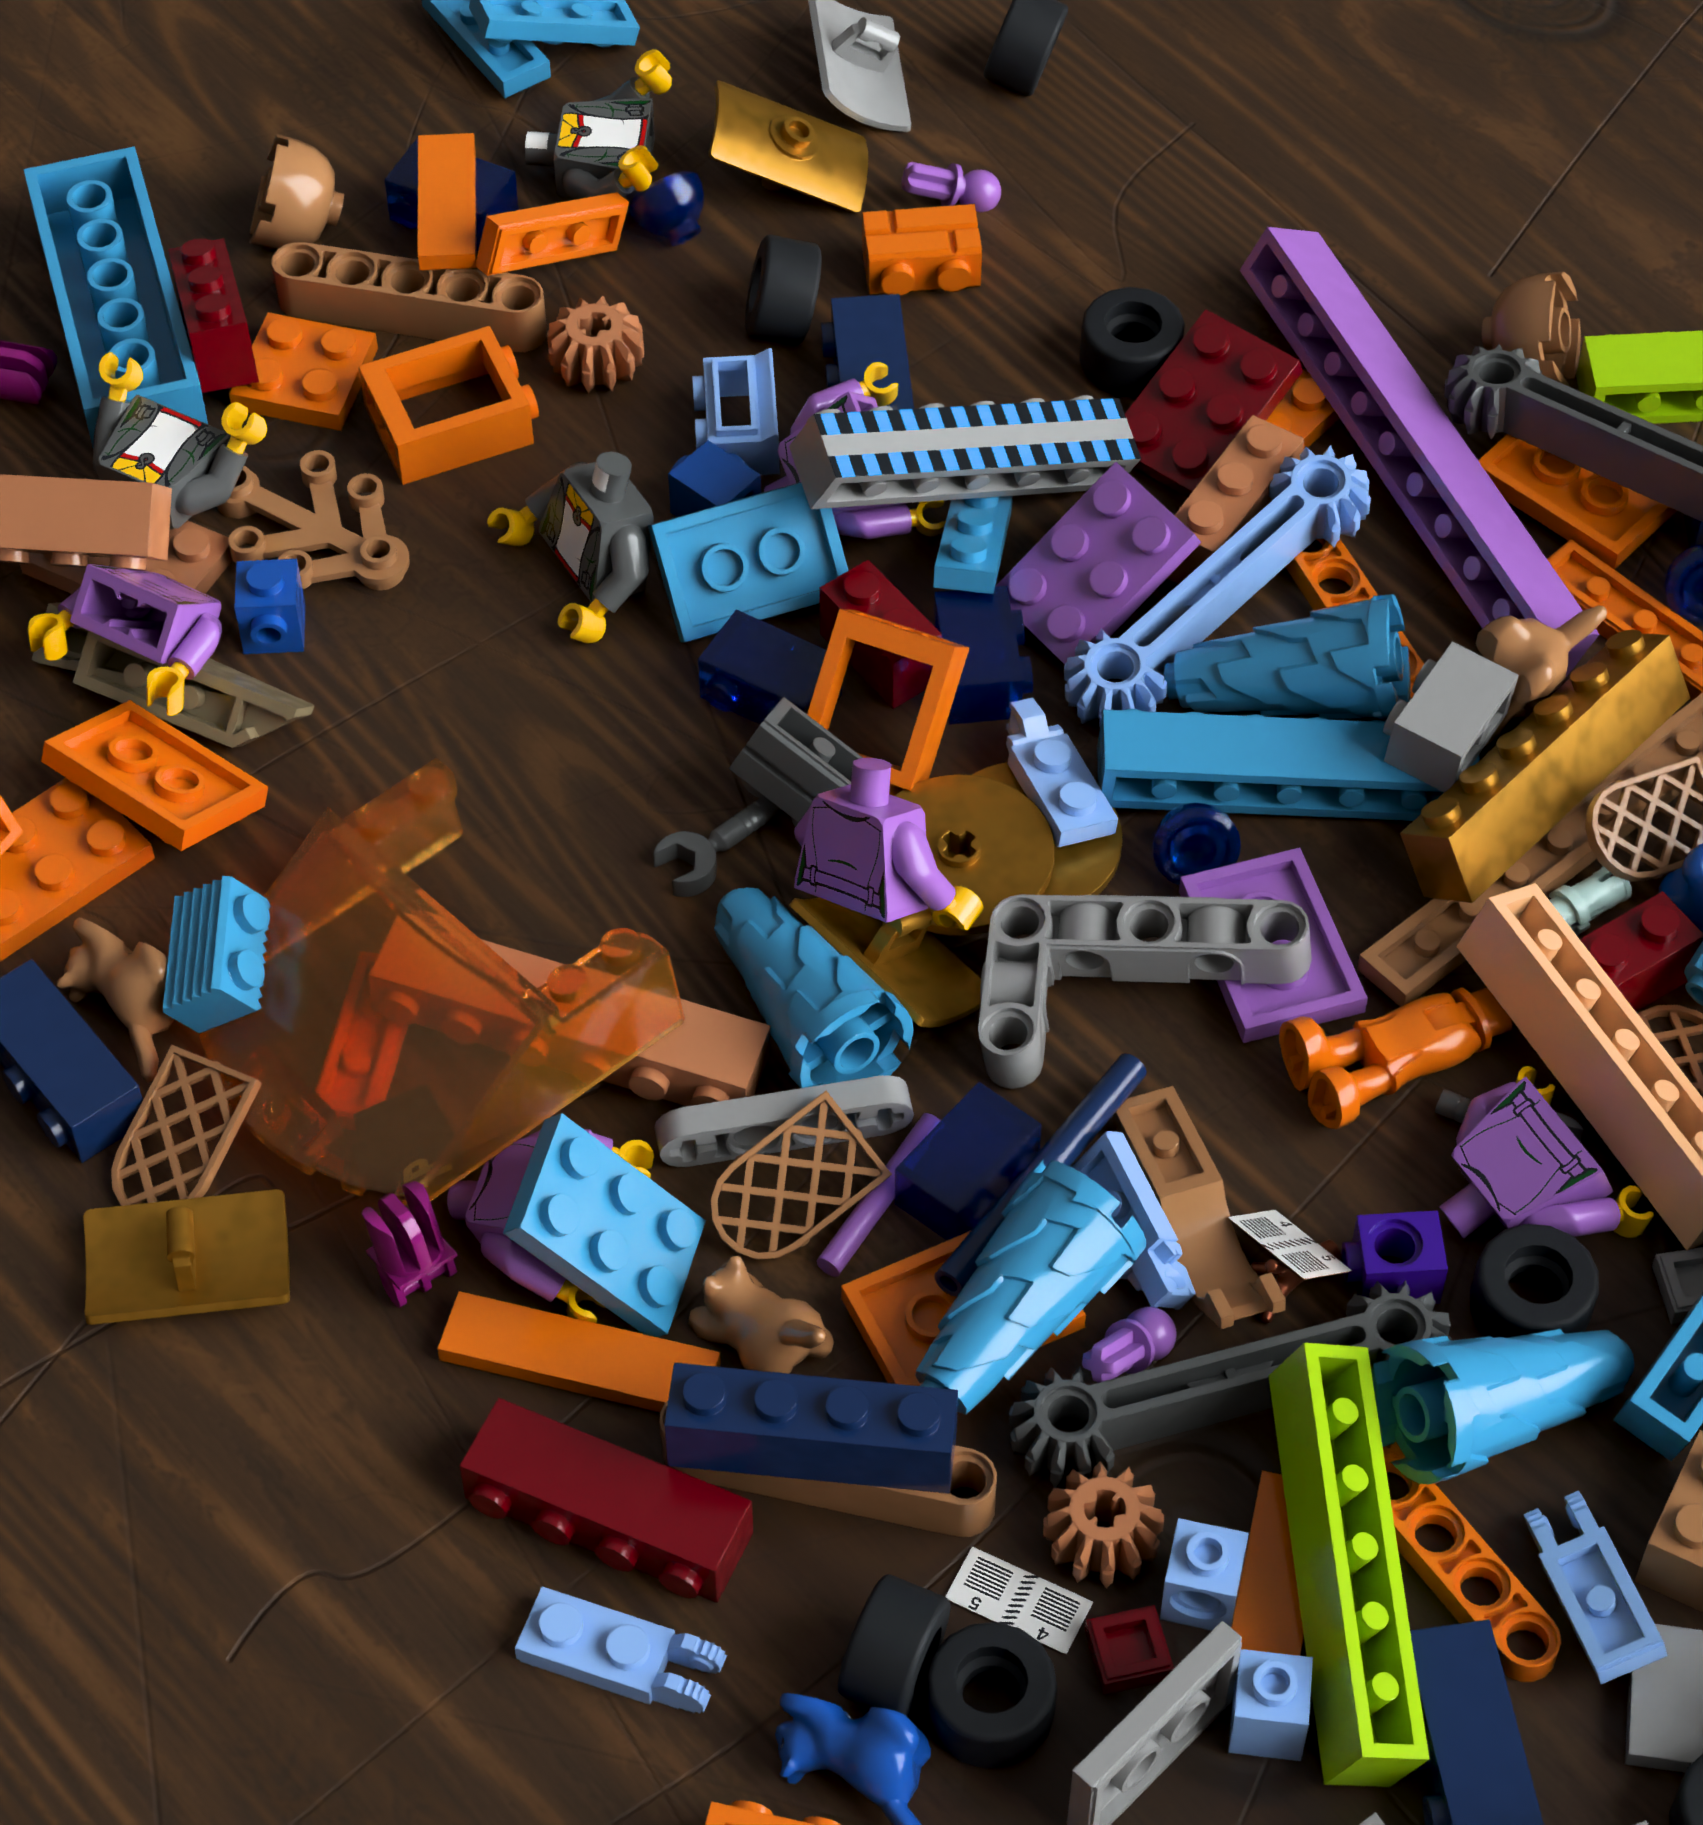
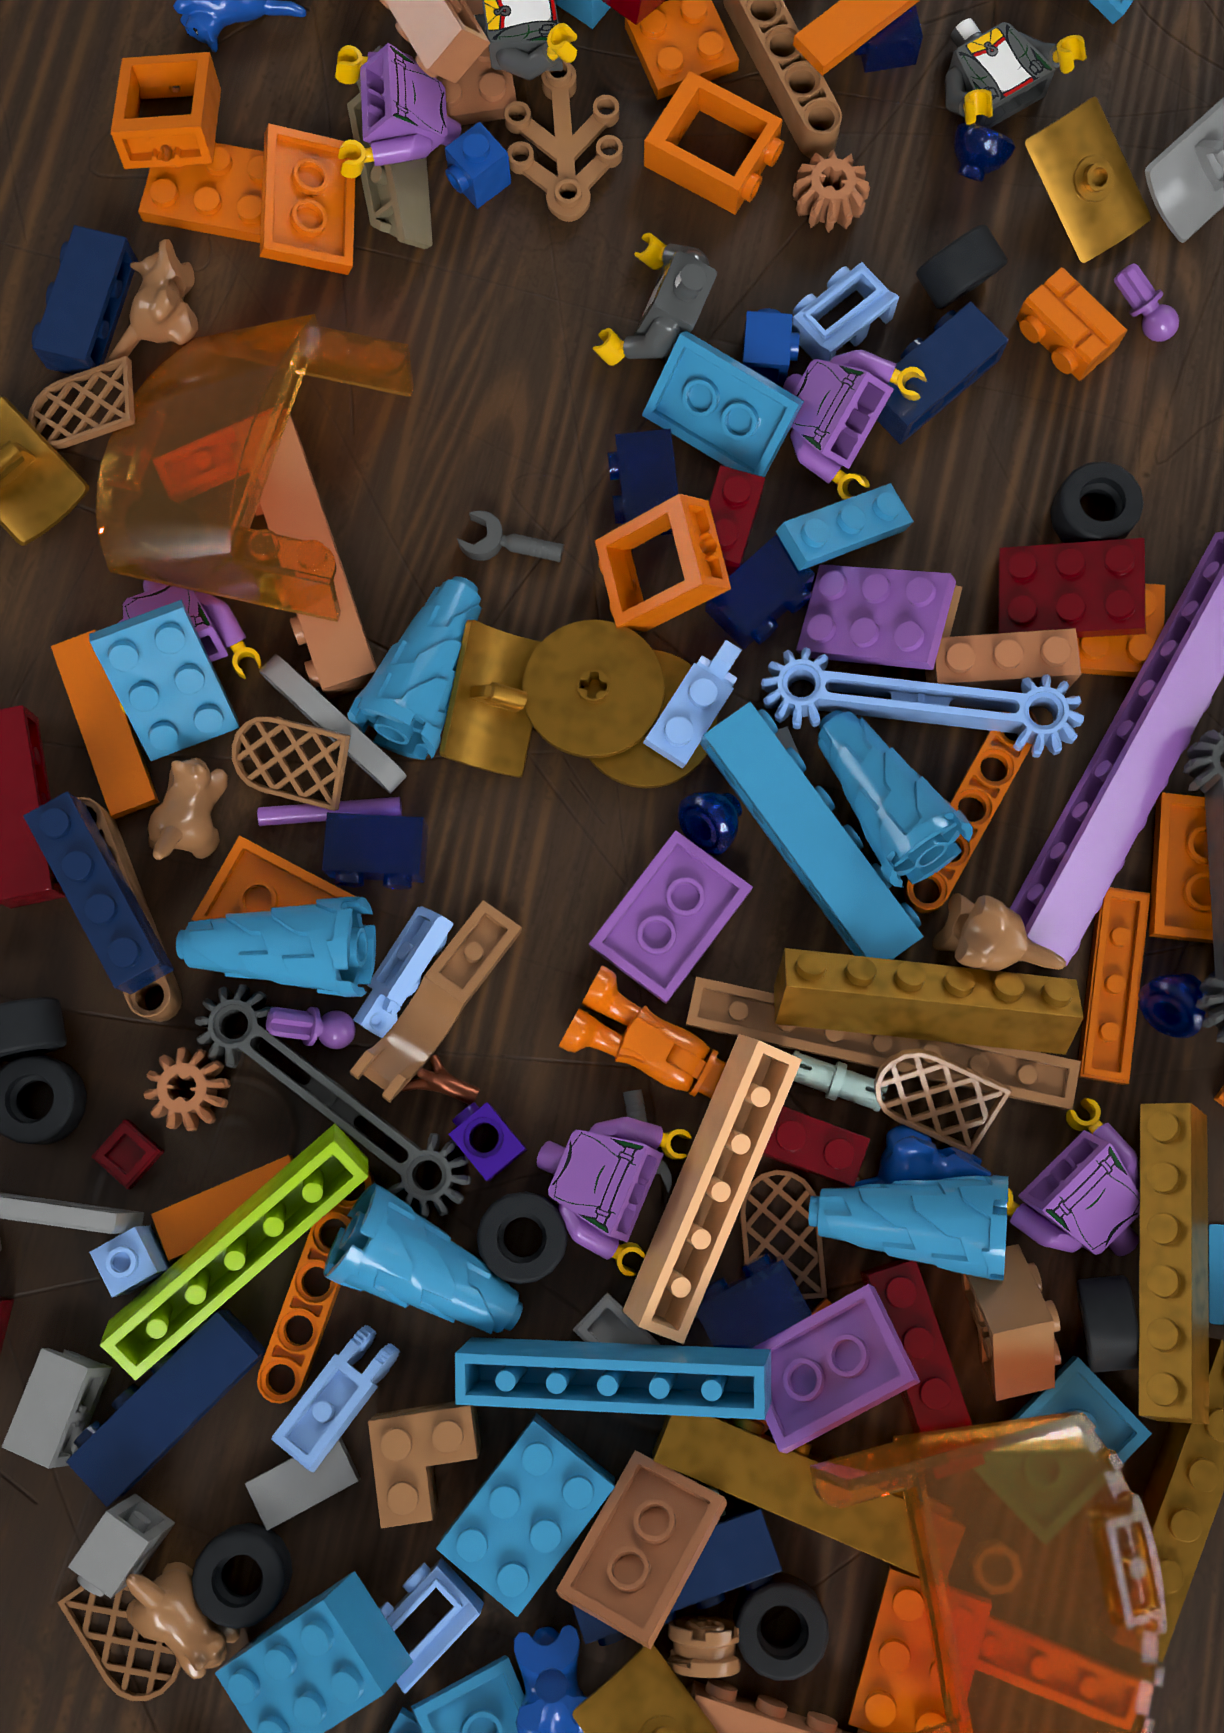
camera: 55 degrees right, 25 degrees up
(216, 954) = (191, 331): dark azure brick -> none
(407, 1243) = (87, 580): magenta arm -> none
(551, 233) = (887, 97): orange tile -> none
(793, 760) = (577, 558): dark grey brick -> none
(875, 853) = (519, 648): medium lavender torso -> none
(960, 451) = (888, 474): brick -> none
(1019, 1599) = (122, 1070): white sticker -> none
(1063, 1147) = (399, 896): dark blue piece -> none
(1104, 939) = (524, 787): light grey beam -> none
(1203, 1575) = (188, 1168): light blue brick -> none
(1289, 1244) = (451, 1071): white sticker -> none
(1449, 716) = (903, 918): light grey brick -> none

